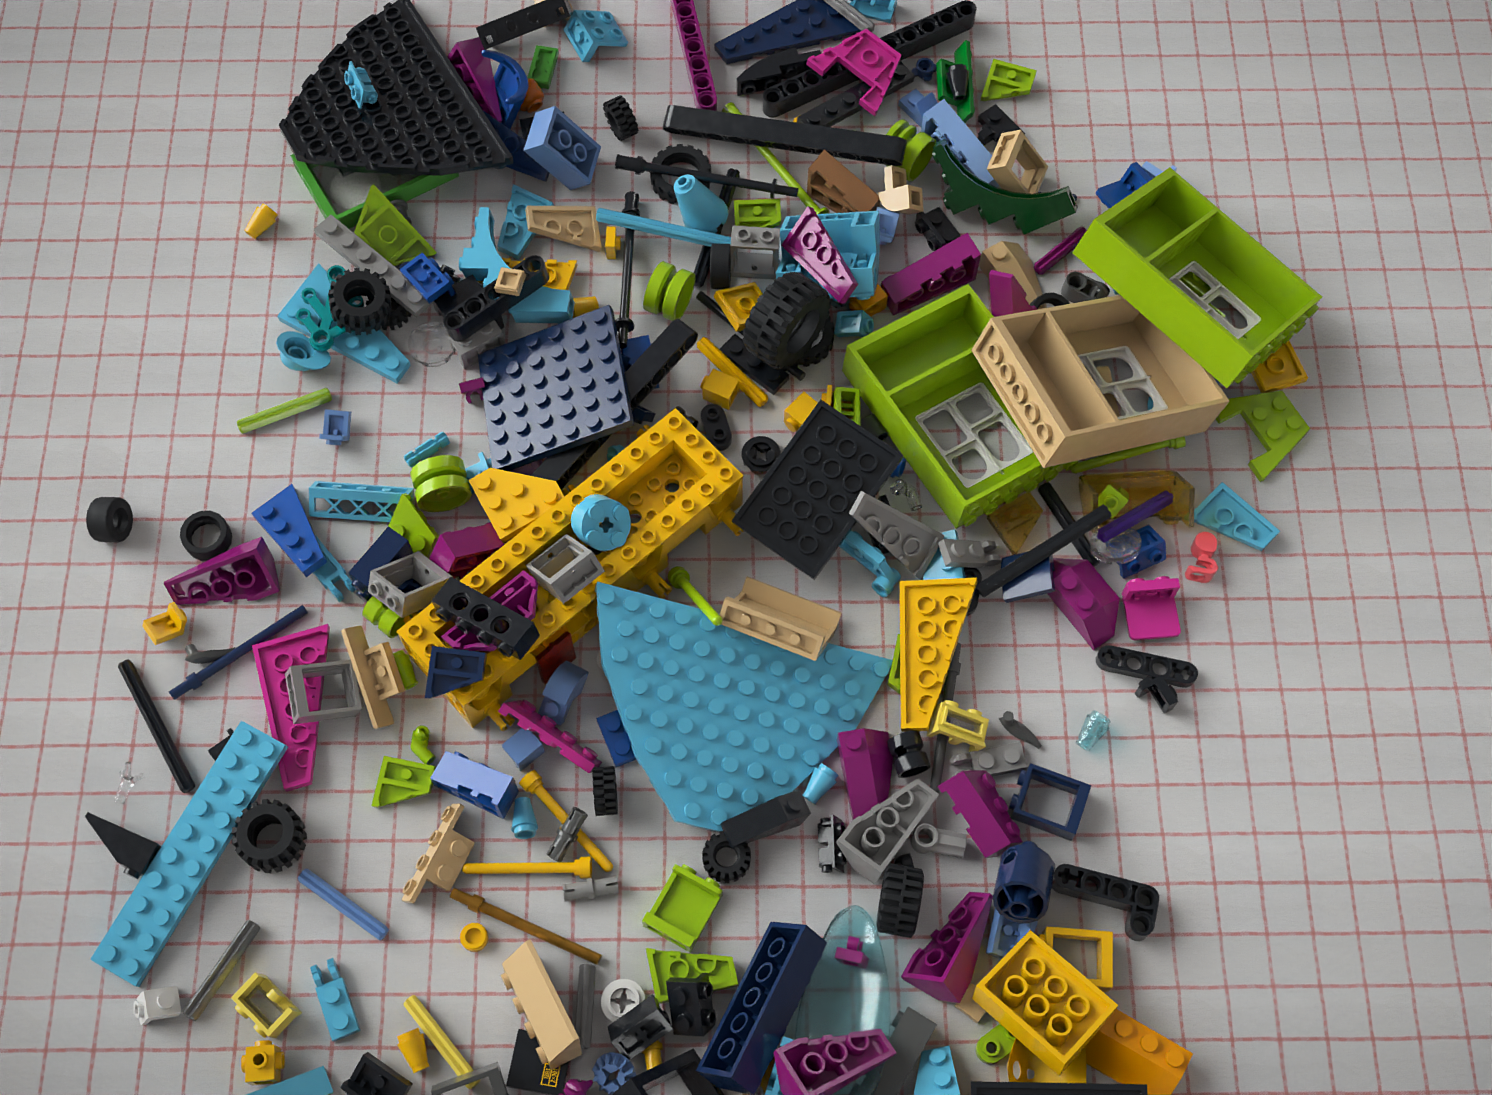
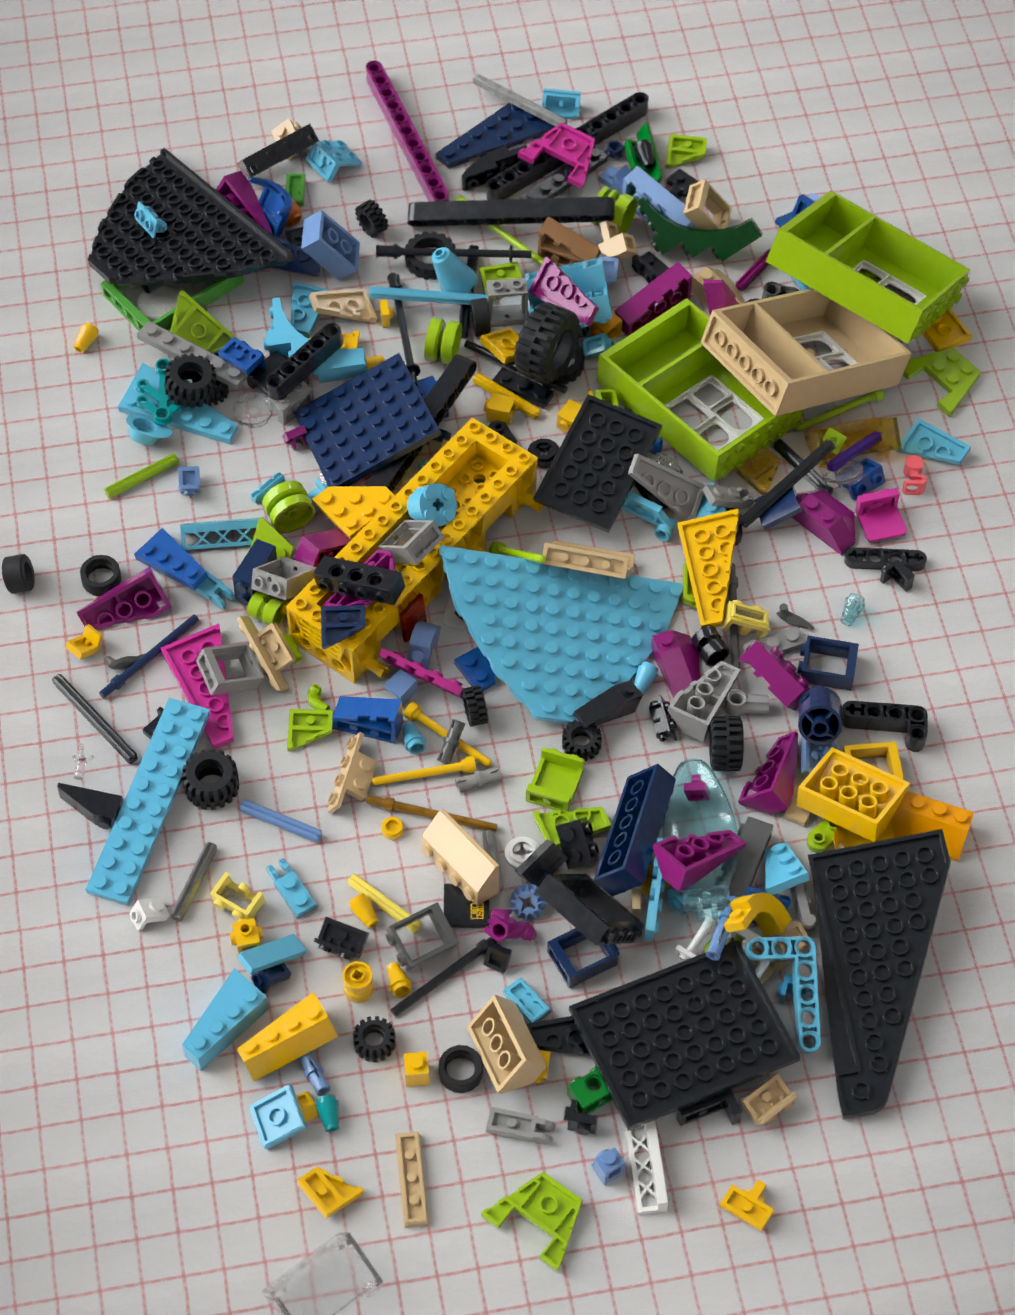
camera: 10 degrees left, 10 degrees down
(510, 281) = (315, 344): tan tile -> none

